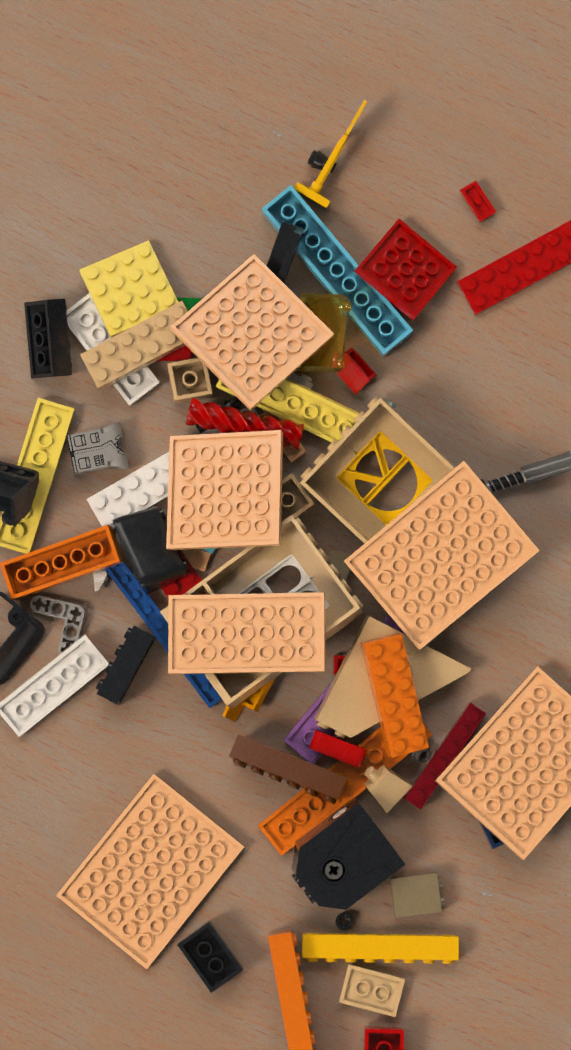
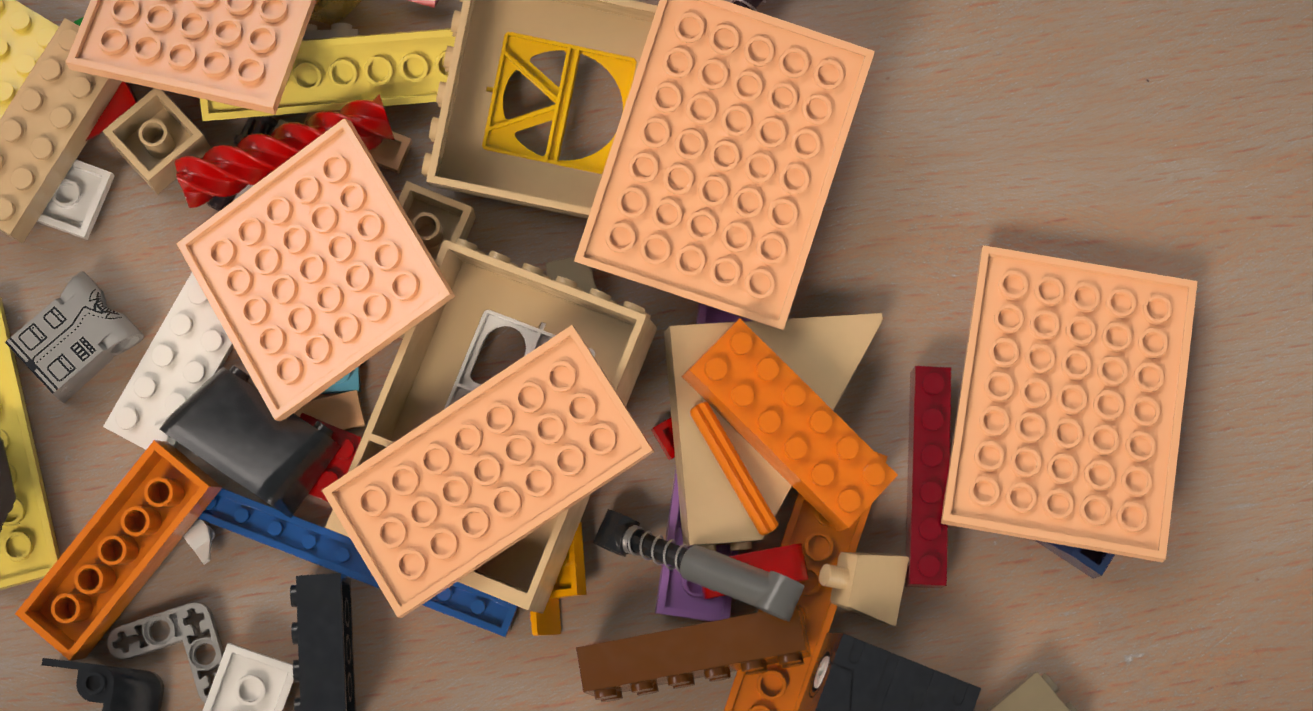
camera: 30 degrees left, 5 degrees down
(315, 732) = (702, 566): none -> dark grey piece
(357, 698) = (734, 468): none -> orange axle
(421, 755) = (890, 500): dark grey plate -> none

